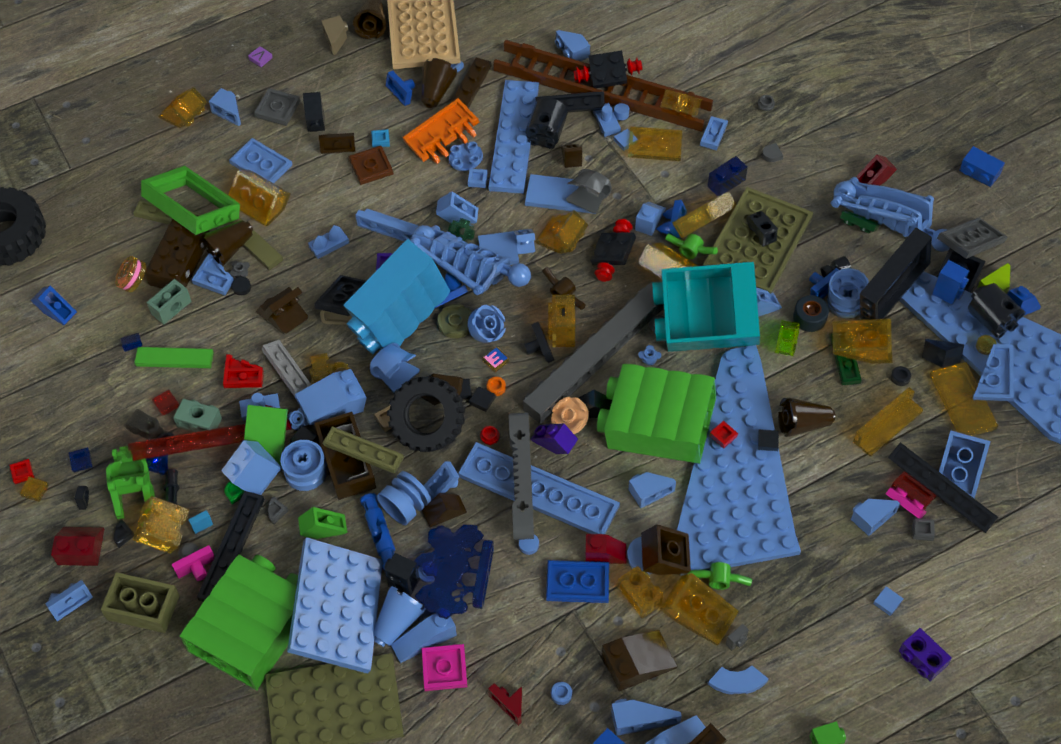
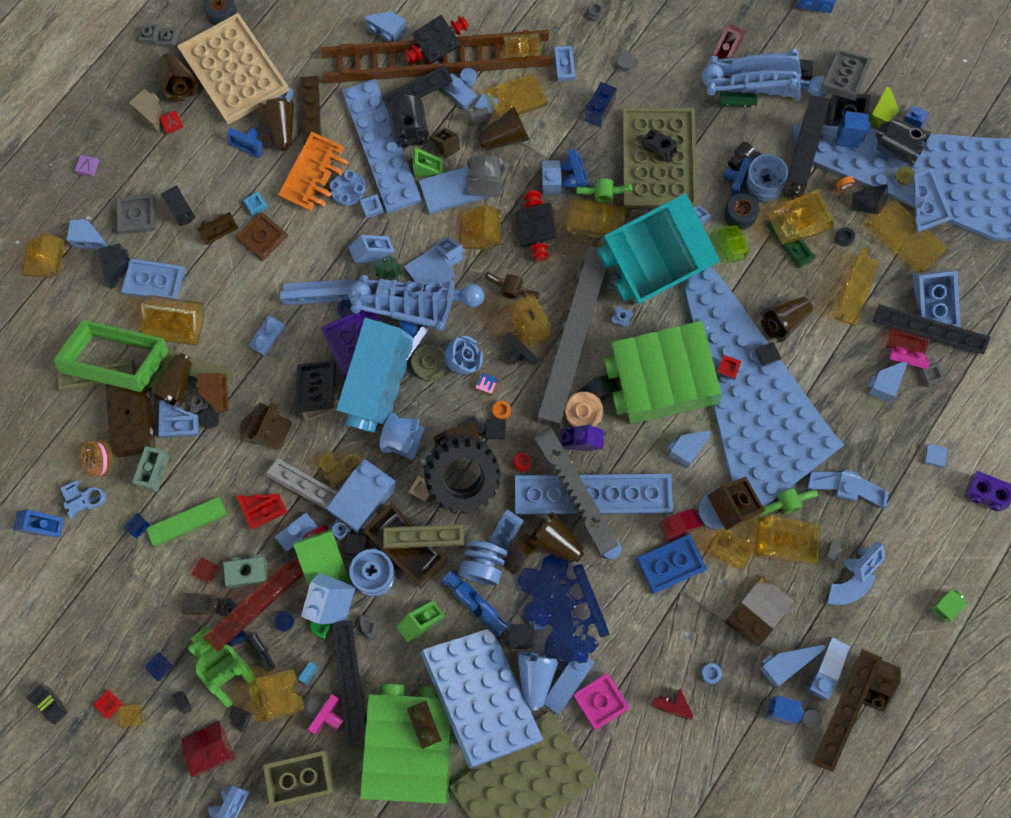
camera: 25 degrees left, 15 degrees up
(98, 303) = (77, 497): none -> medium blue piece
(206, 472) = (284, 621): none -> clear blue plate
(236, 135) = (114, 263): none -> black slope
(258, 262) = (214, 390): none -> reddish brown slope
(270, 599) = (424, 724): none -> dark brown tile
(348, 50) = (171, 122): none -> red tile
(481, 509) = (556, 539): none -> dark brown cone
(542, 162) = (426, 164): none -> bright green slope
(612, 145) = (479, 116): none -> dark grey tile
(627, 164) = (504, 131): none -> dark brown cone
(704, 214) = (601, 154): clear yellow slope -> none
(766, 661) = (870, 559): none -> medium blue tile
(785, 589) = (848, 486): none -> medium blue plate
(924, 330) = (845, 183): none -> orange tile
(939, 220) = (806, 69): none -> black plate

